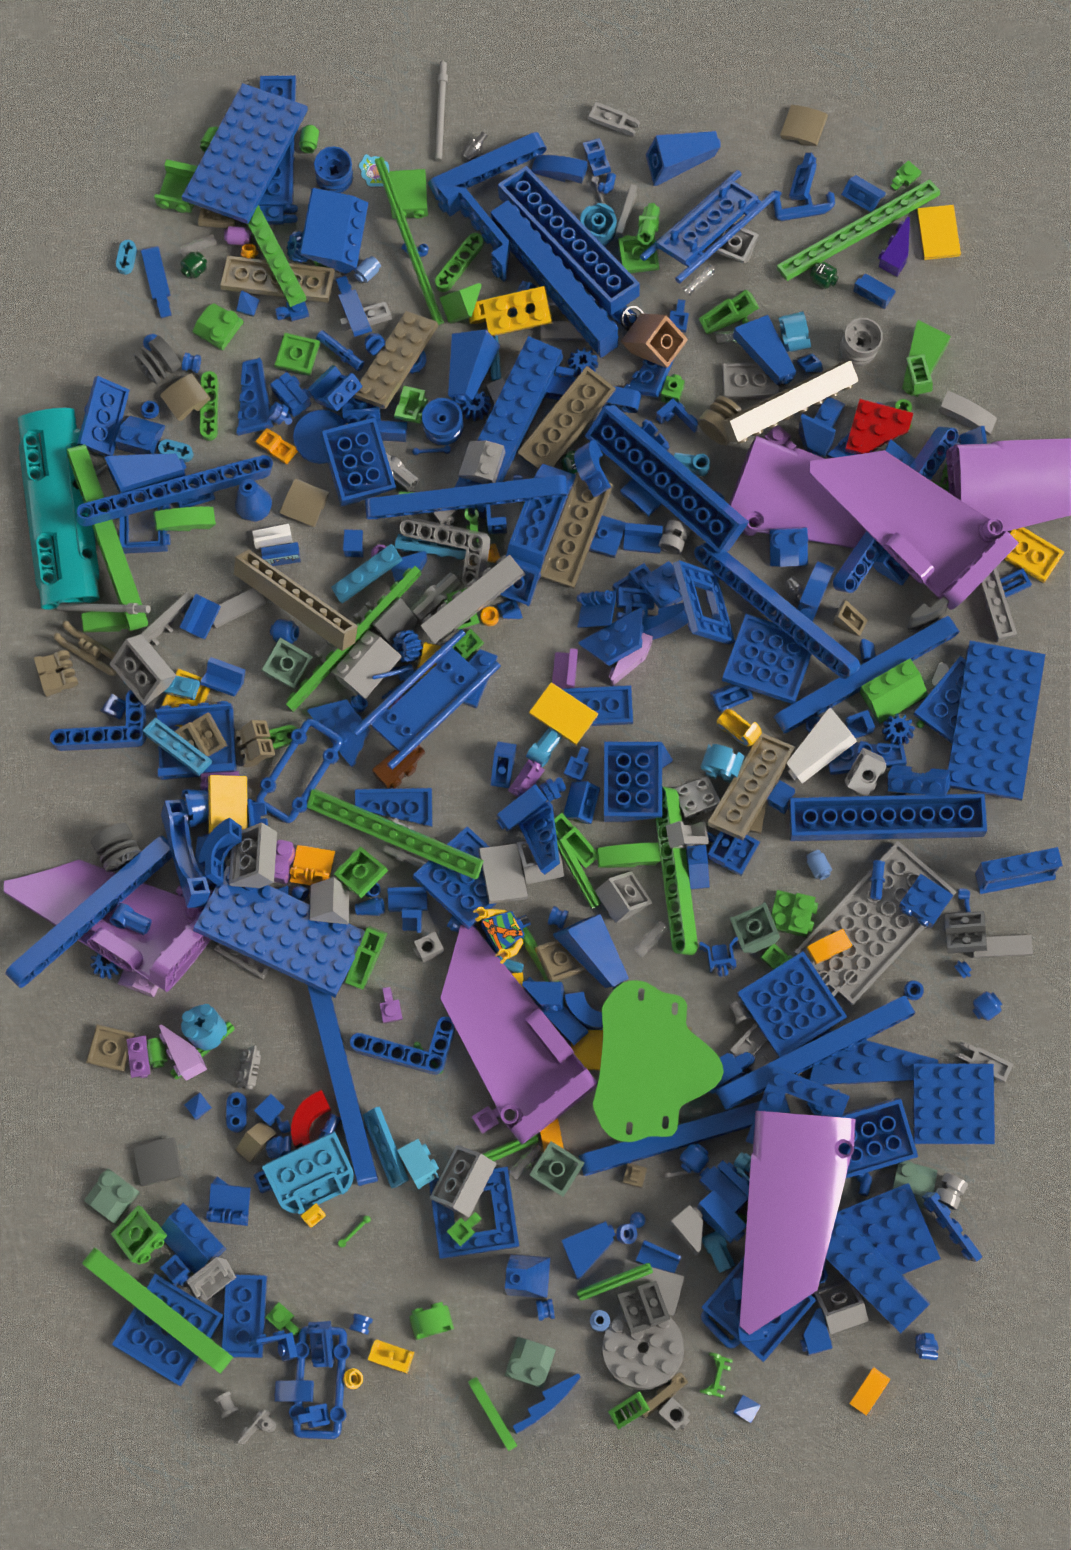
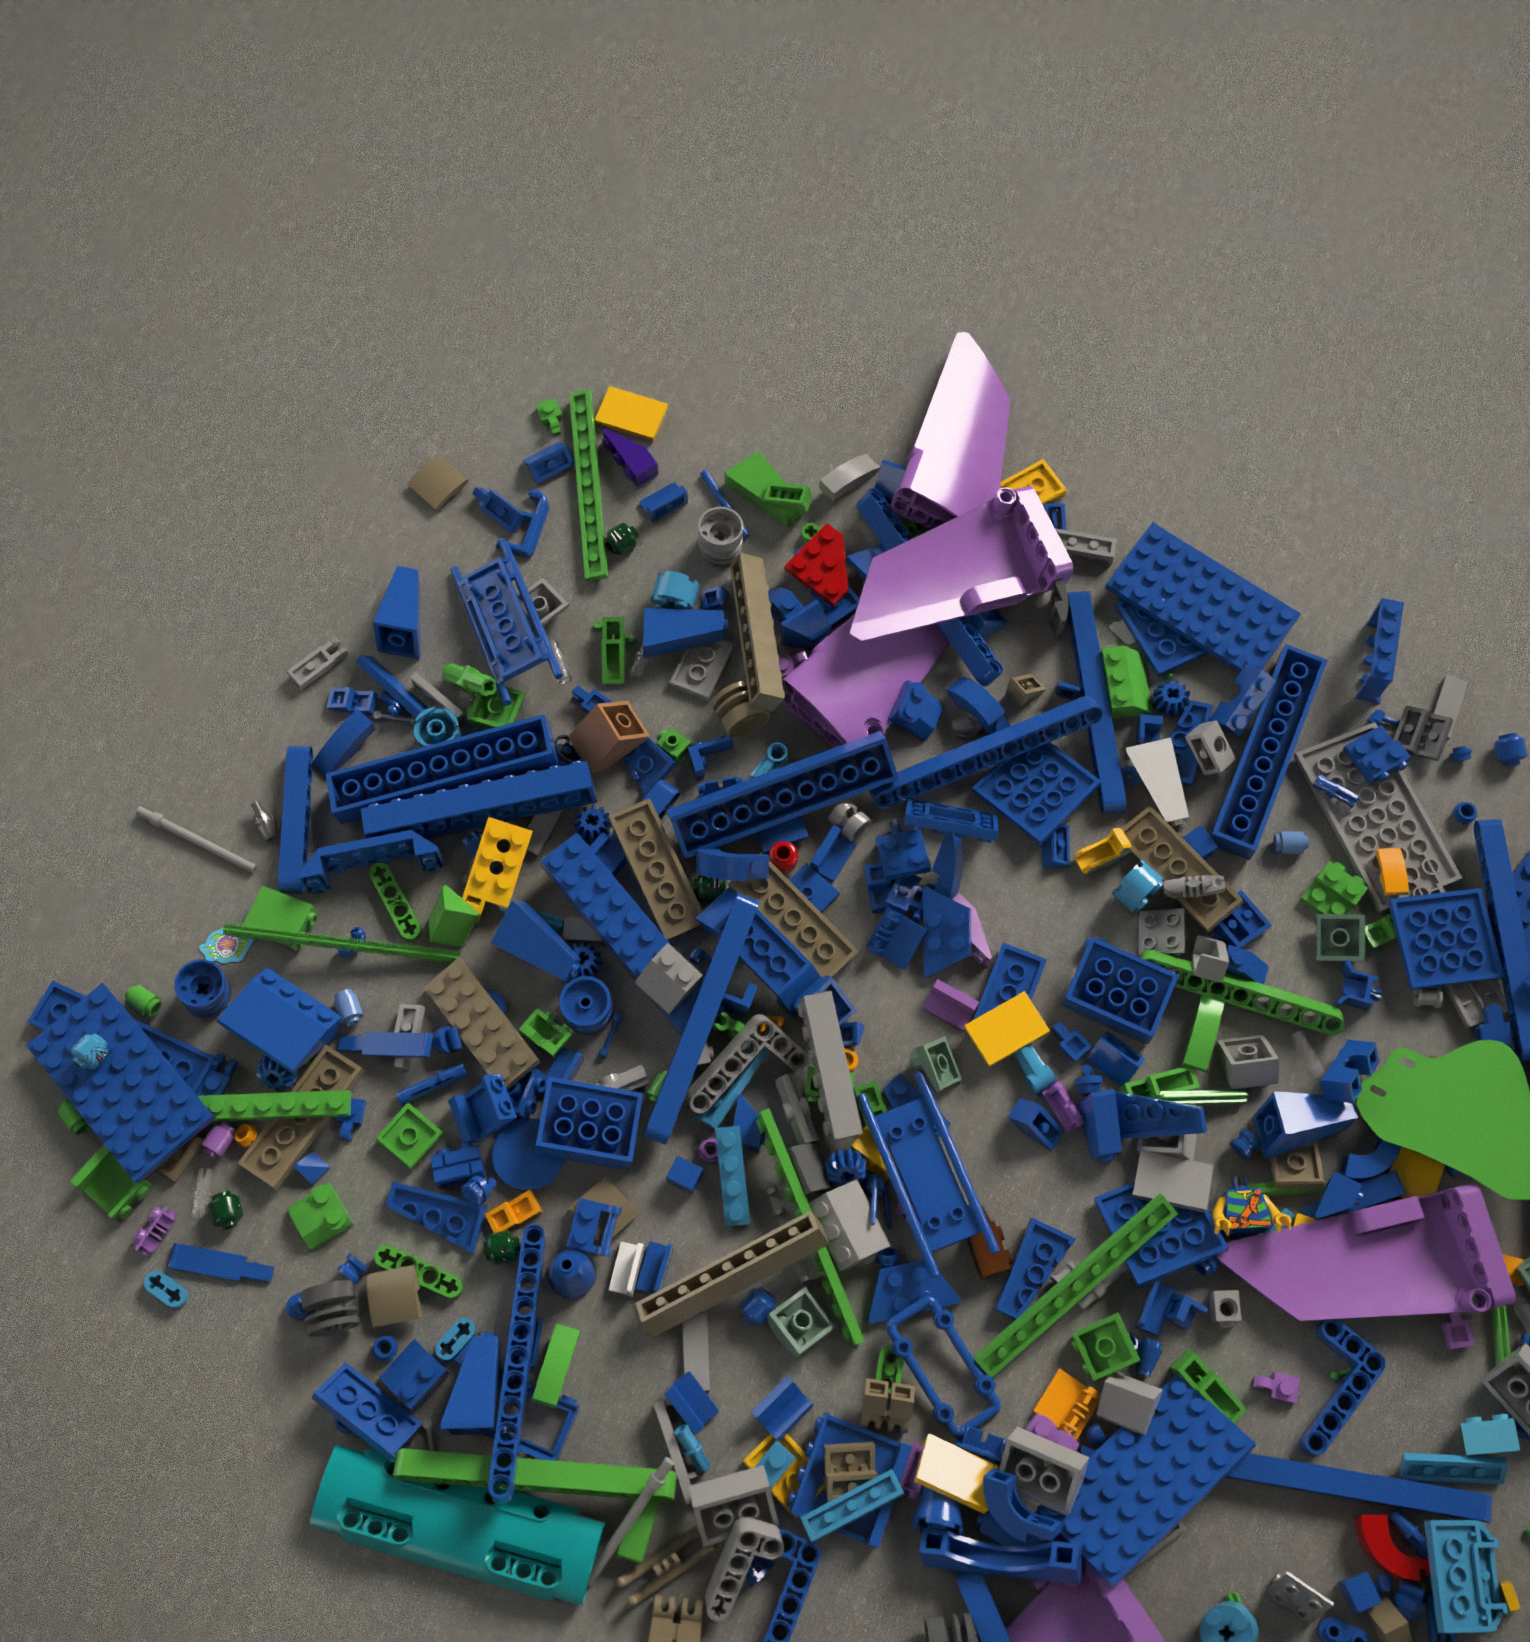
camera: 70 degrees left, 5 degrees down
(124, 687) = (737, 1568): none -> light grey beam
(153, 227) = (156, 1216): none -> medium lavender hinge
(170, 631) = (692, 1448): none -> dark azure axle
(247, 447) = (501, 1247): none -> dark green head
(252, 121) = (89, 1051): none -> dark azure head
(287, 494) = (586, 1224): none -> blue plate
(513, 676) = (936, 1063): none -> sand green slope
(620, 503) = (784, 856): none -> red head
(621, 177) = (391, 685): none -> blue tile
(658, 969) = (1342, 1078): none -> blue arch
(736, 797) = (1194, 886): none -> light grey hinge
(897, 333) = (719, 495): none -> blue bar

